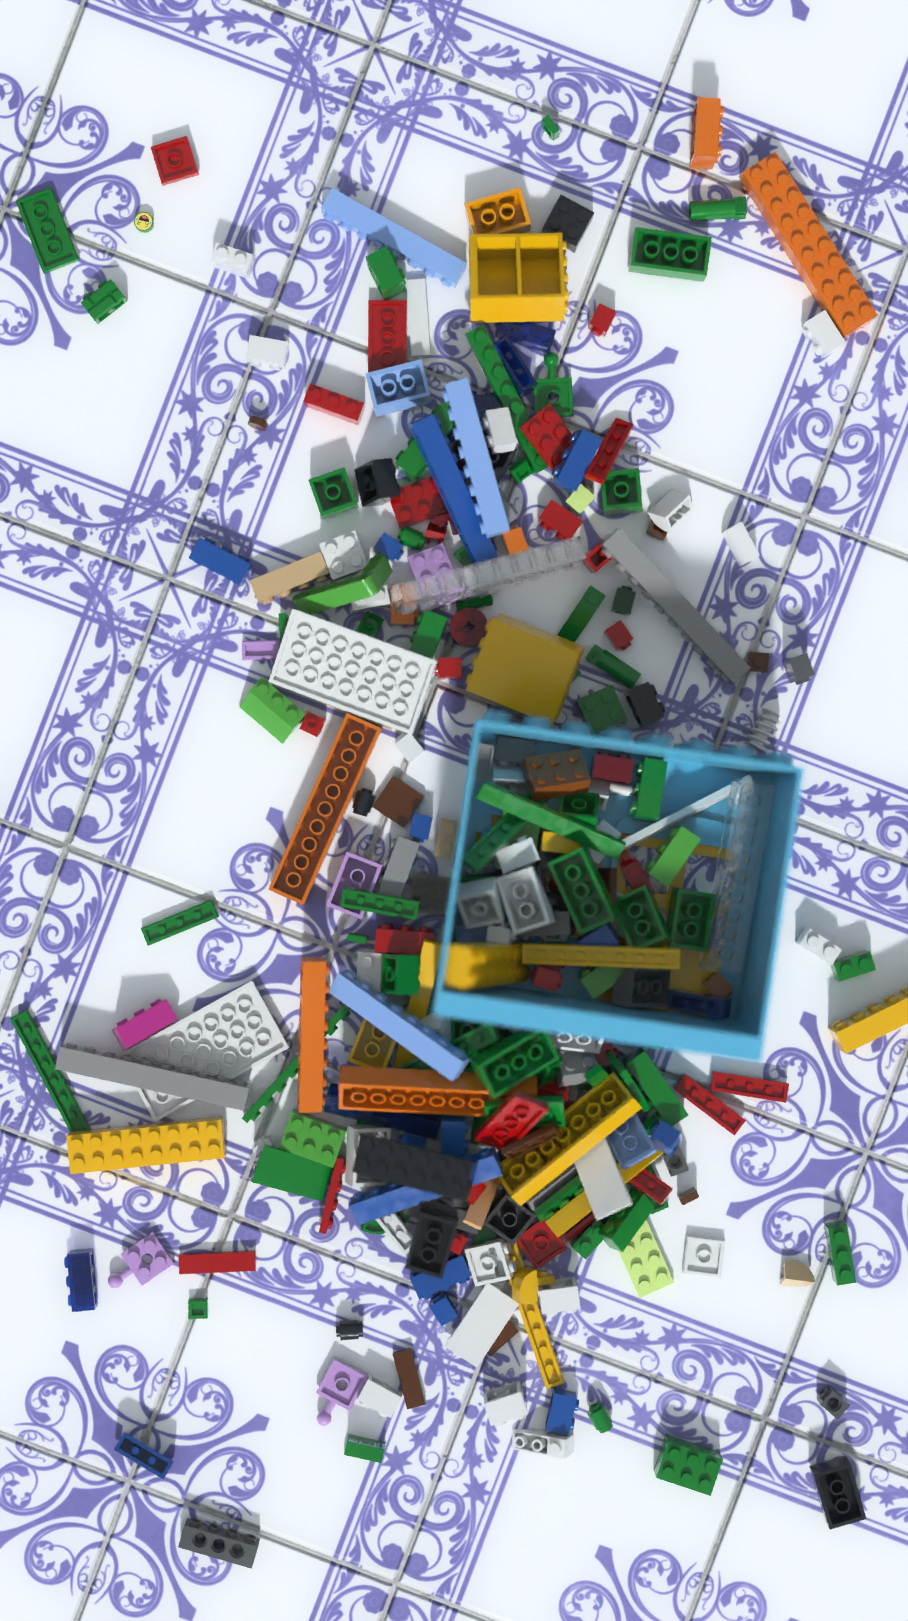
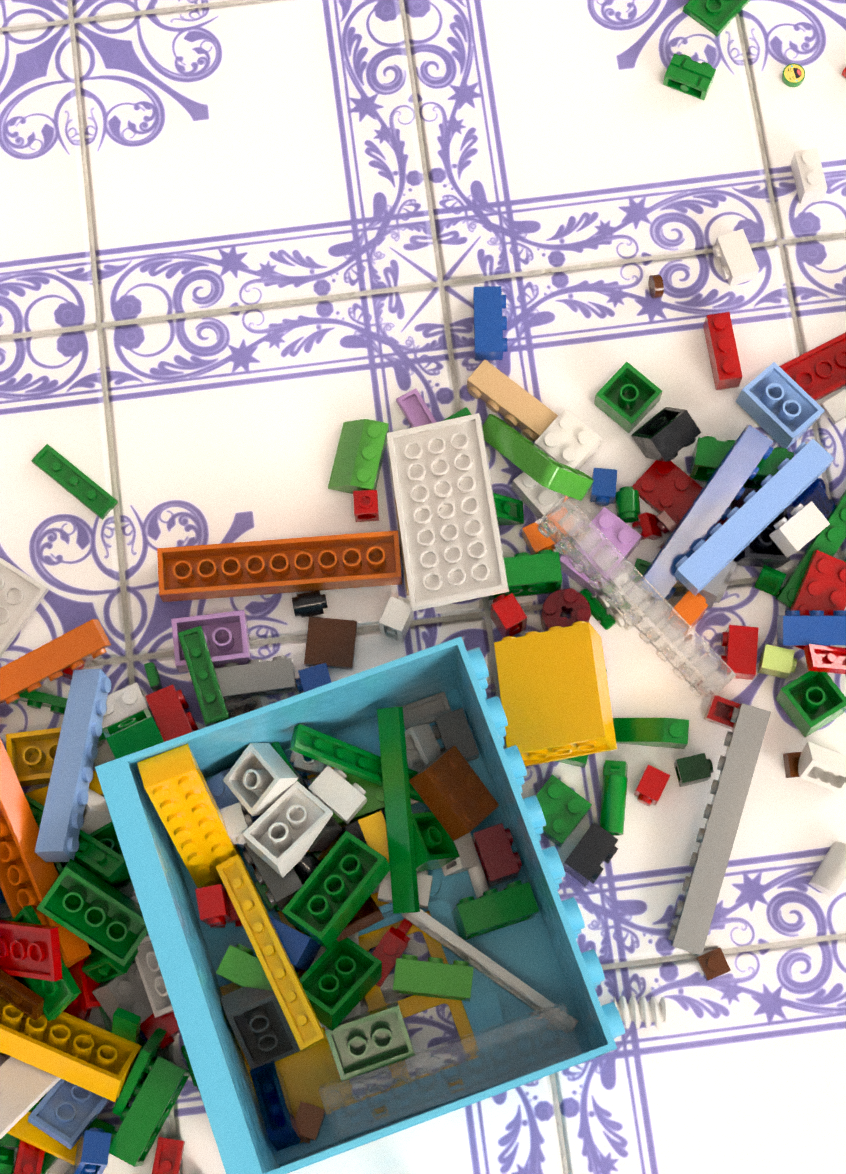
camera: 60 degrees right, 15 degrees down
(798, 669) = (732, 1013): dark grey brick -> none

